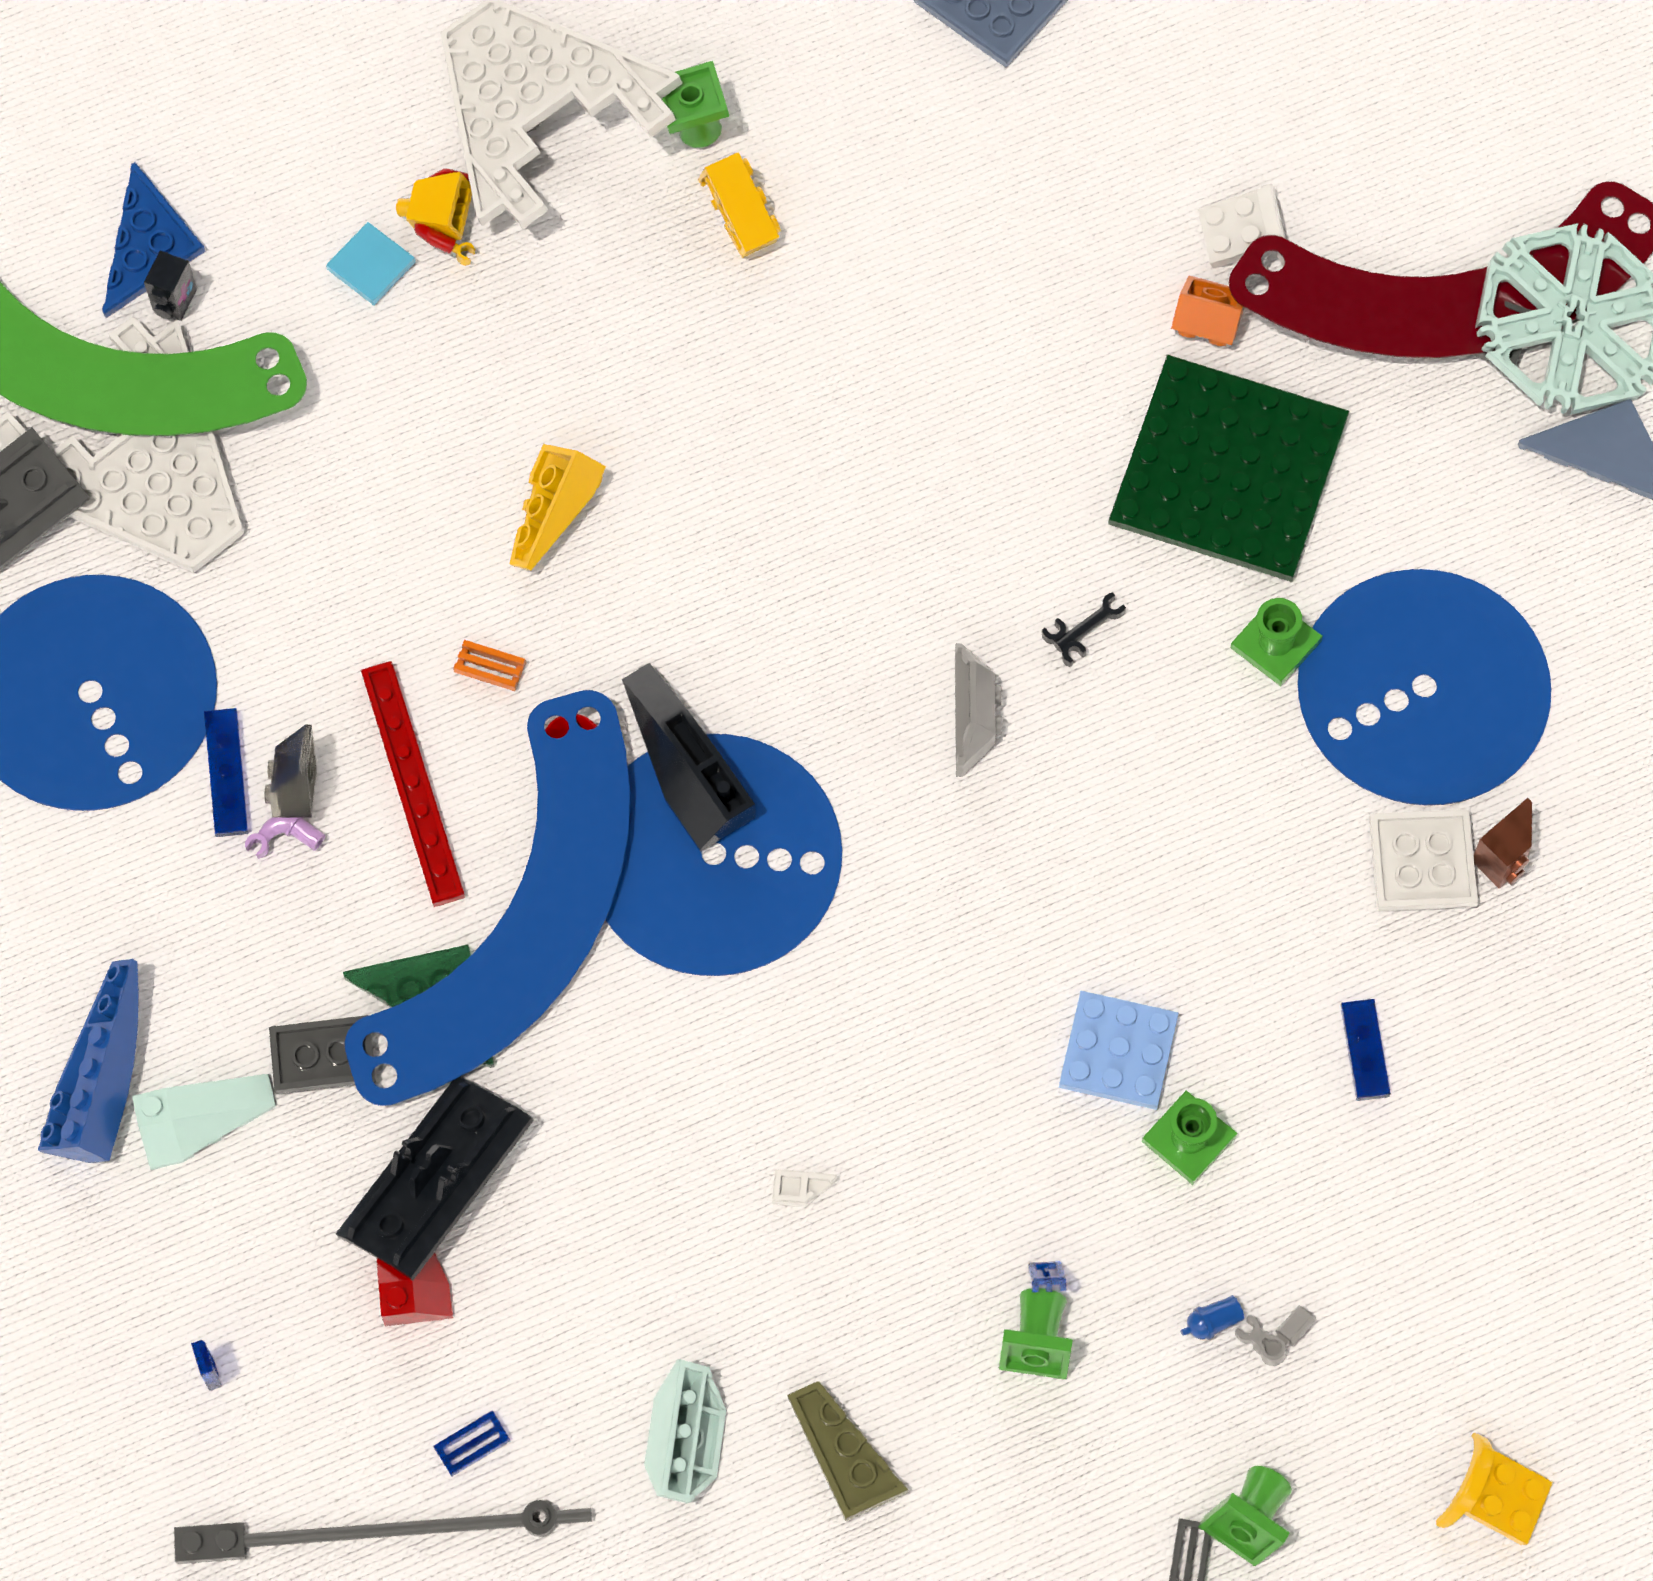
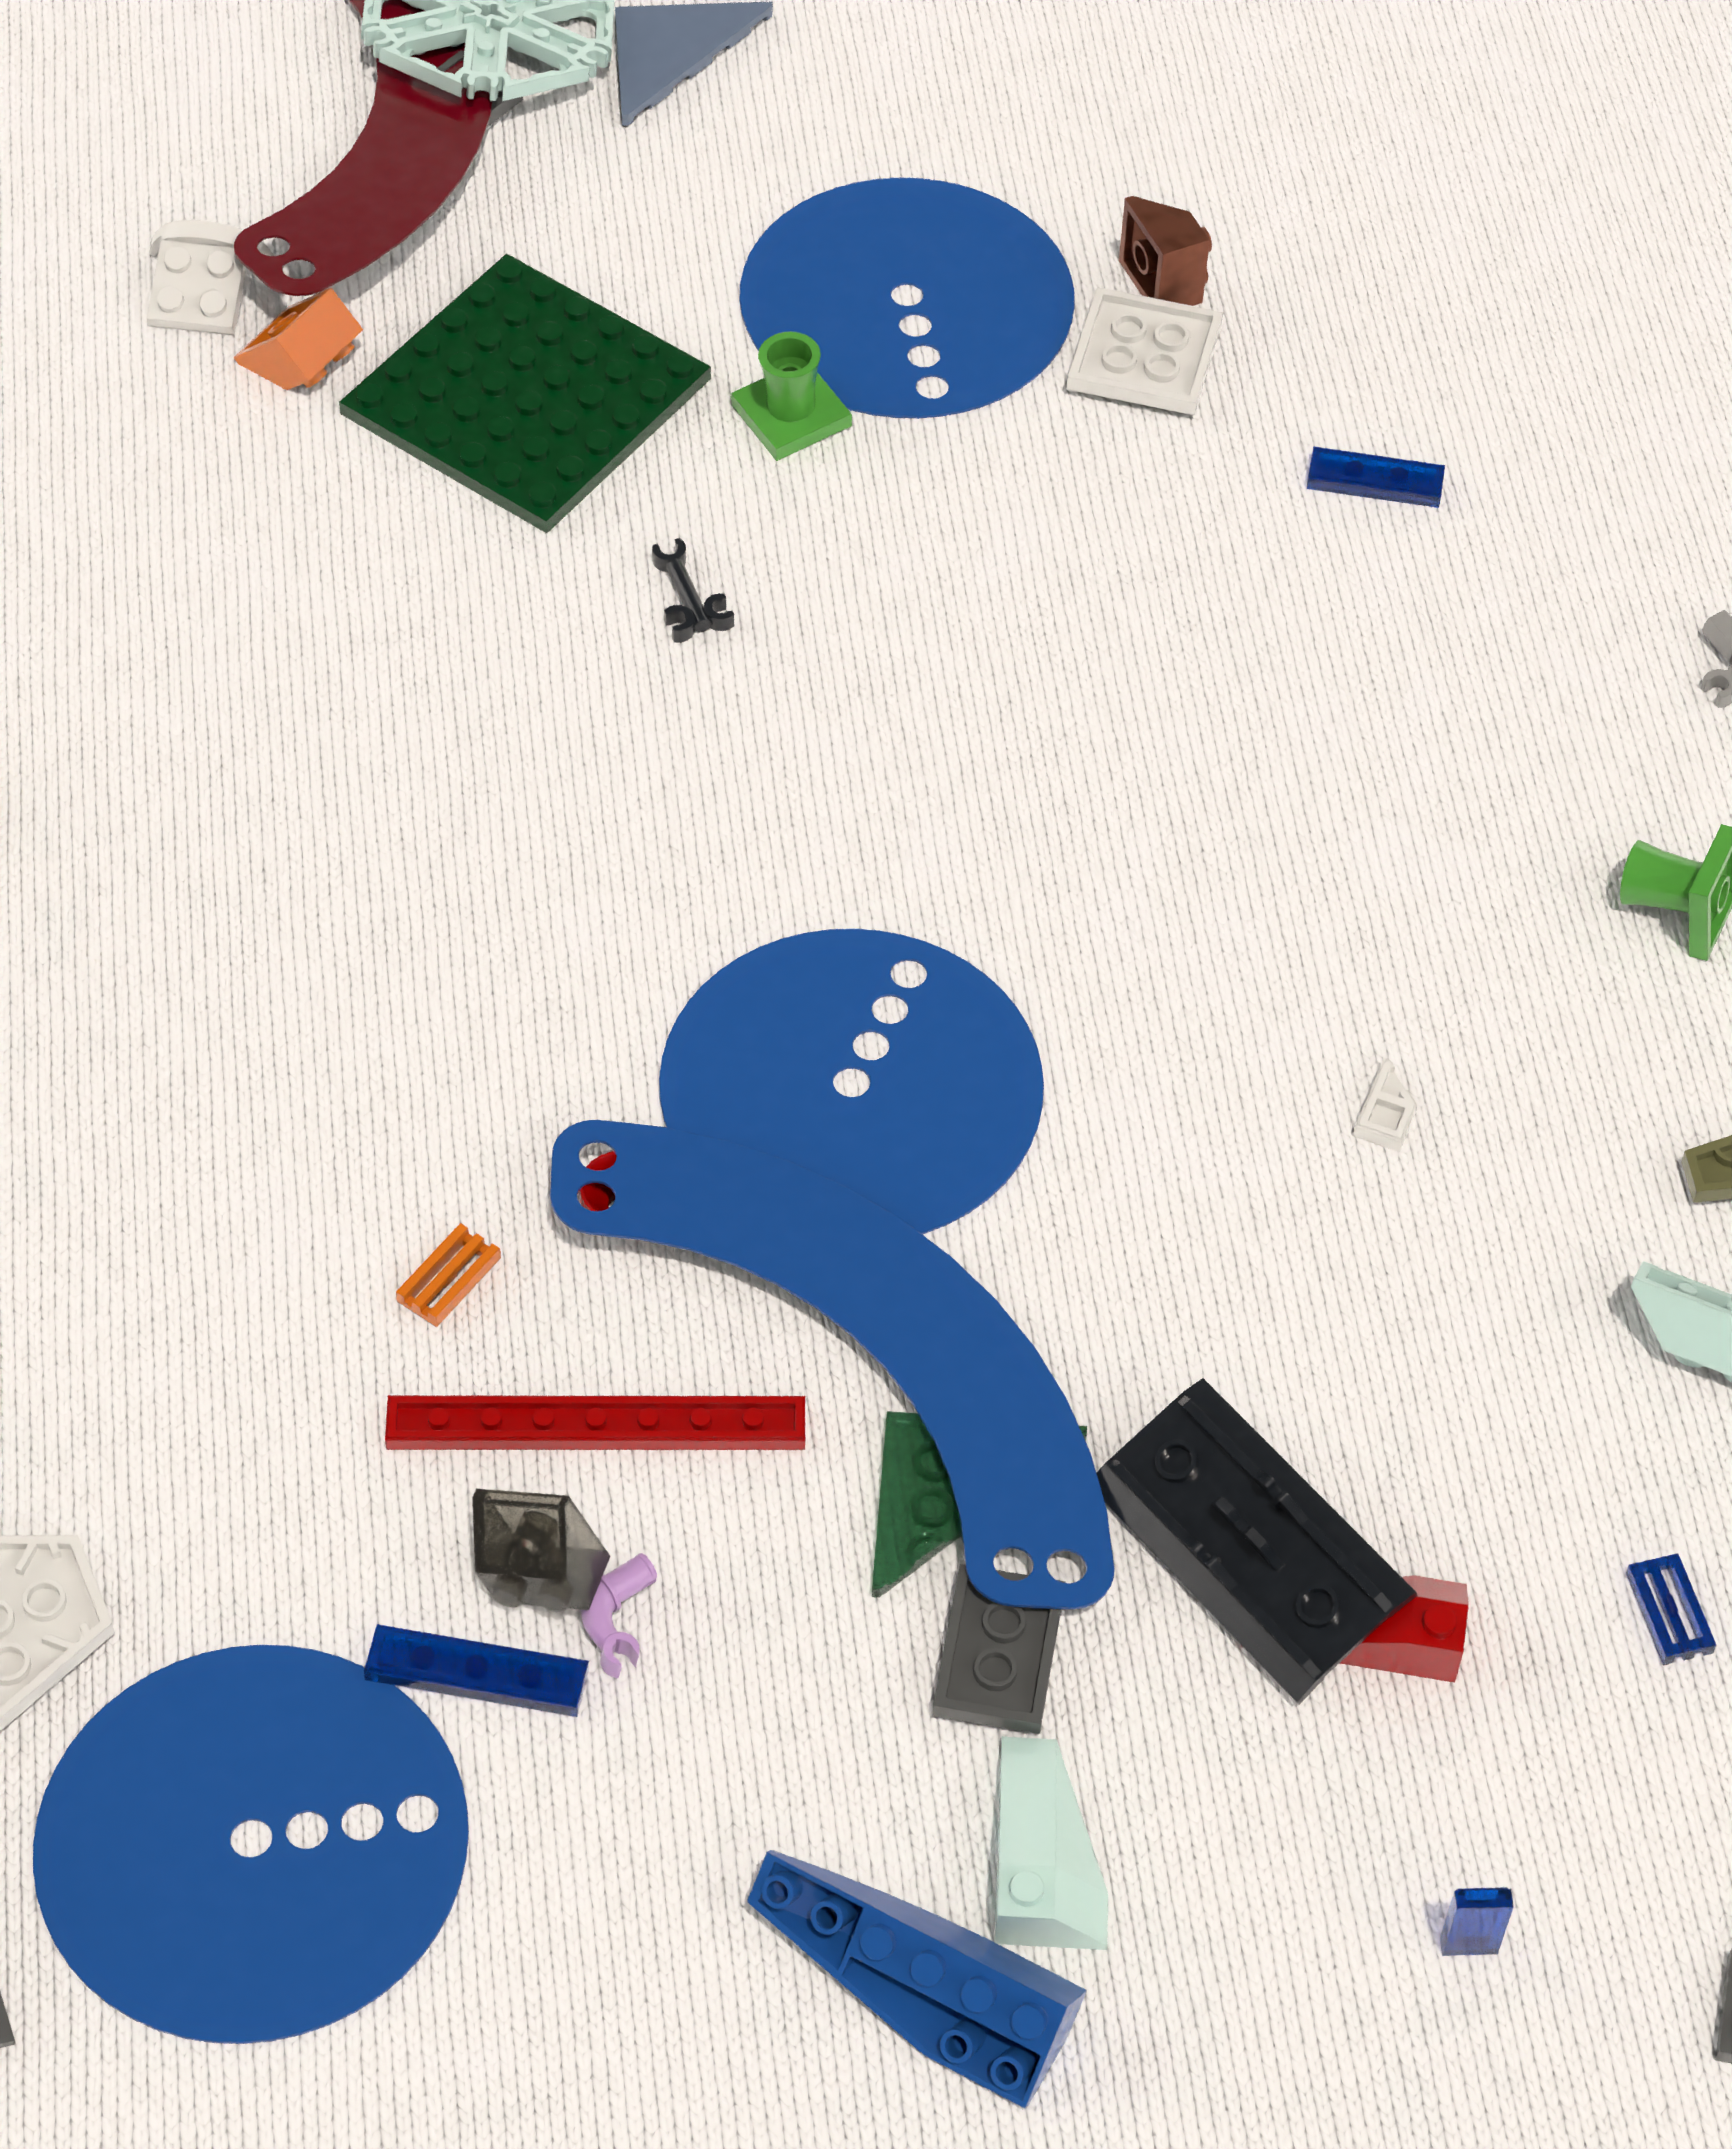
camera: 75 degrees left, 15 degrees down
(561, 488) = (221, 1117): yellow wedge -> none
(686, 762) = (706, 1061): black wedge -> none
(974, 709) = (757, 725): light grey wedge -> none
(1047, 1280) = (1607, 853): clear blue tile -> none
(1118, 1050) = (1297, 715): light blue plate -> none
(1185, 1151) = (1443, 670): bright green plant -> none
(1213, 1318) = (1699, 711): blue piece -> none

